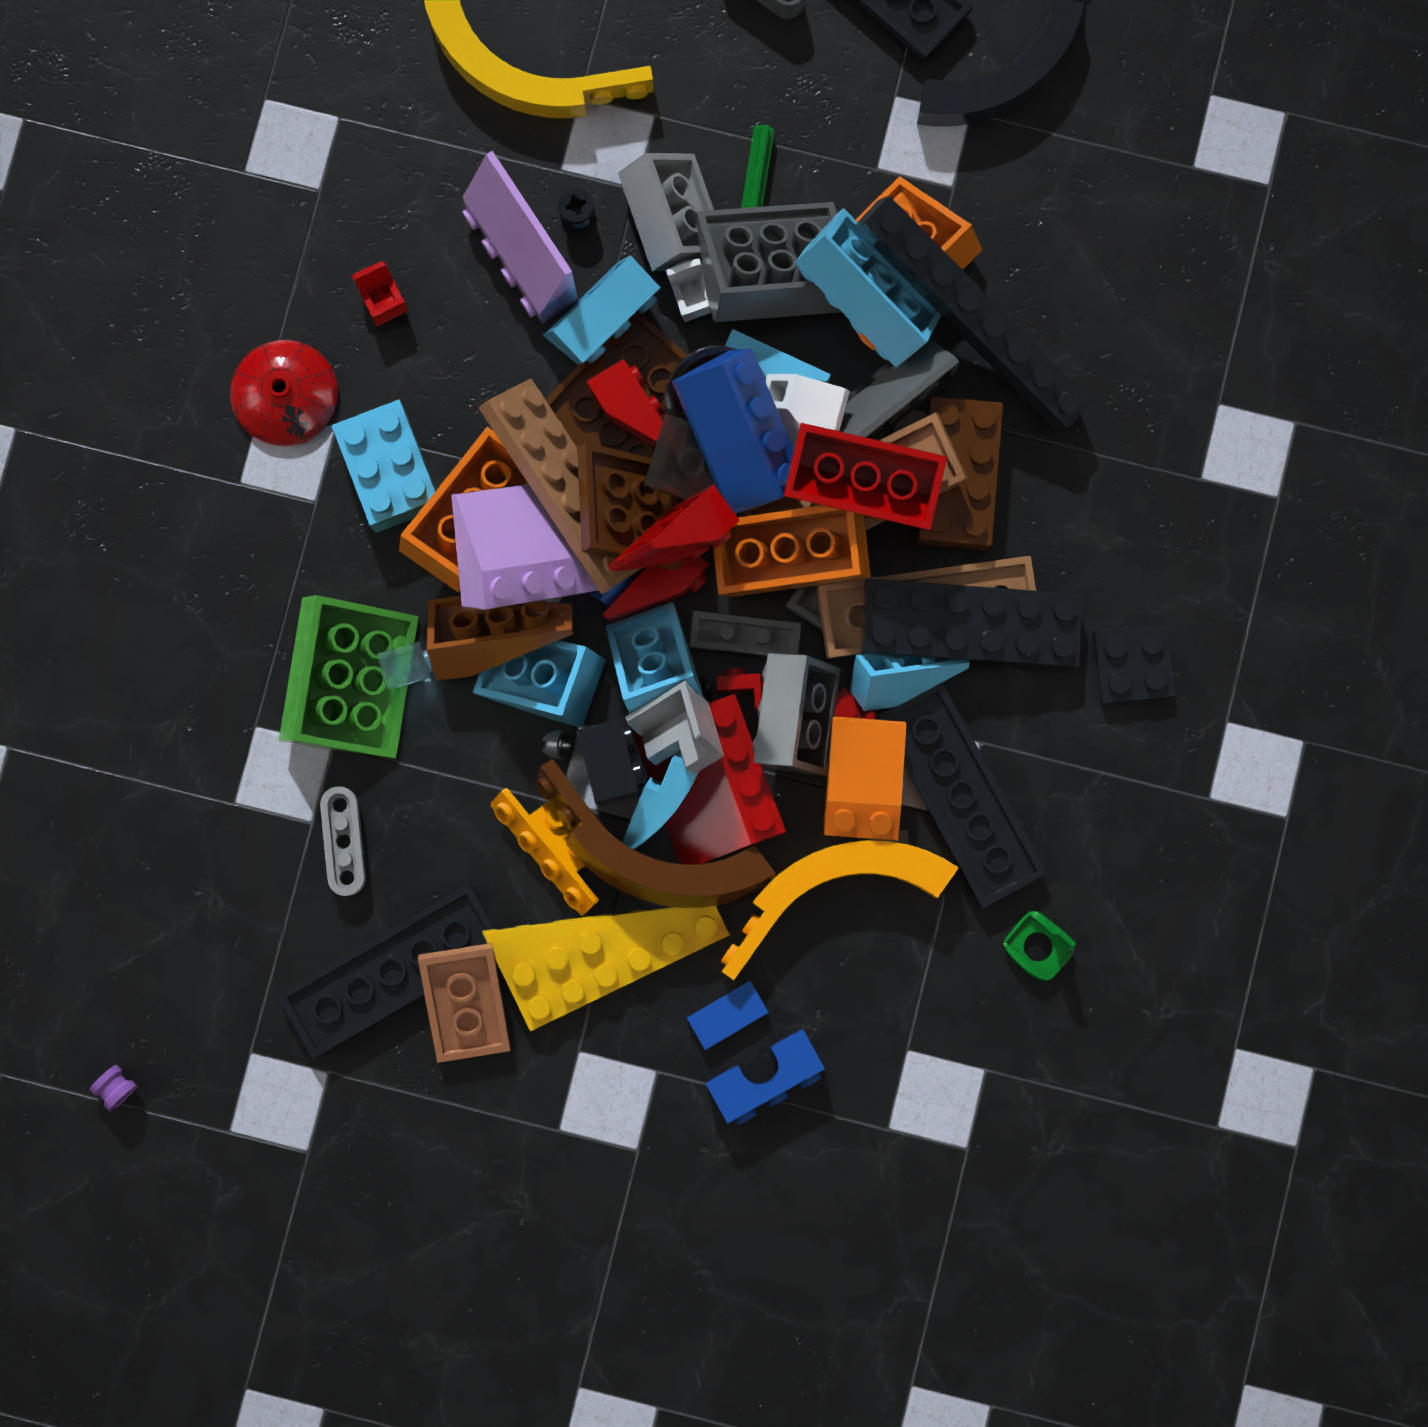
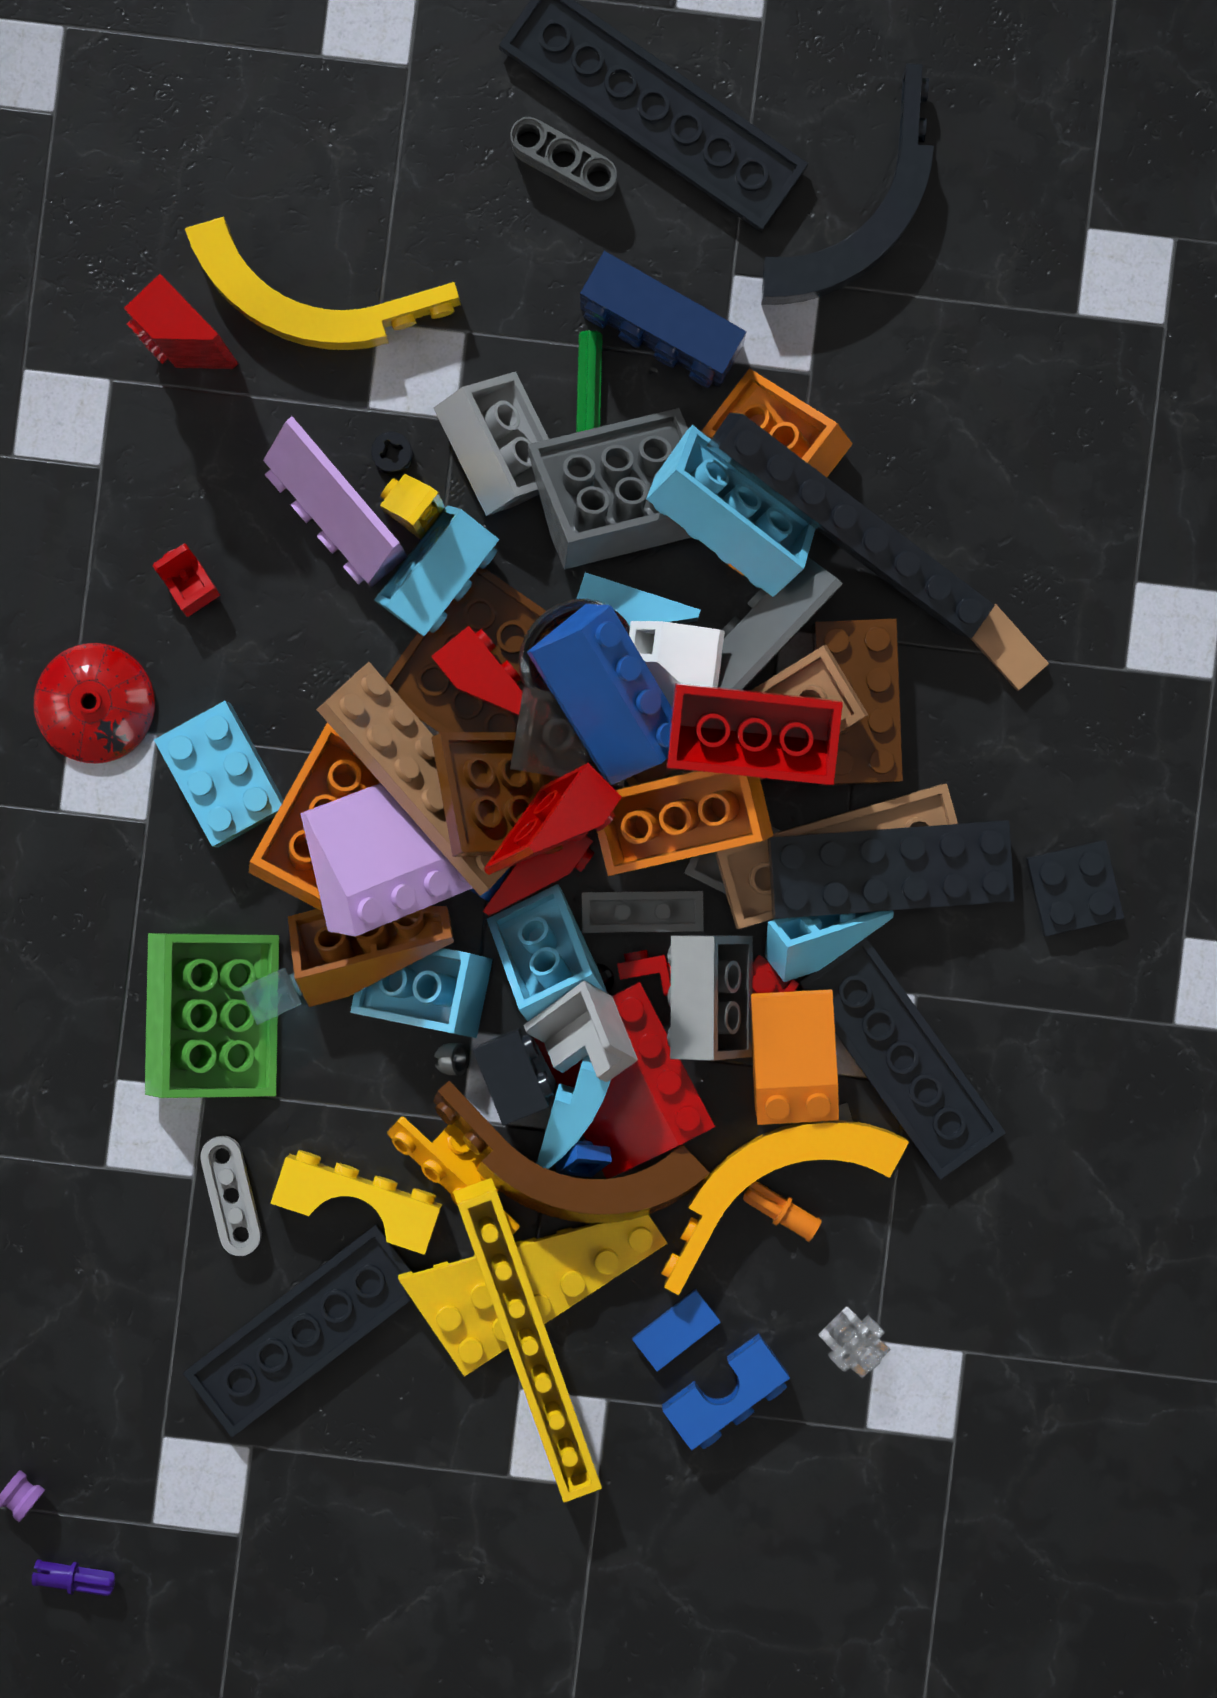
camera: 10 degrees left, 5 degrees up
(150, 1170) = (73, 1578): none -> dark purple axle
(402, 70) = (175, 329): none -> red slope
(464, 1002) = (388, 1356): nougat plate -> none
(496, 881) = (406, 1216): none -> yellow arch
(589, 252) = (412, 504): none -> yellow slope
(592, 1001) = (527, 1339): none -> yellow brick
(665, 847) = (584, 1160): none -> blue plate
(689, 288) = (530, 530): white bracket -> none
(827, 121) = (661, 320): none -> dark blue brick
(836, 918) = (782, 1210): none -> orange axle
(888, 1044) = (854, 1342): none -> clear brick
(1061, 946) = (1031, 1211): green piece -> none
(1098, 446) = (1008, 649): none -> medium nougat tile

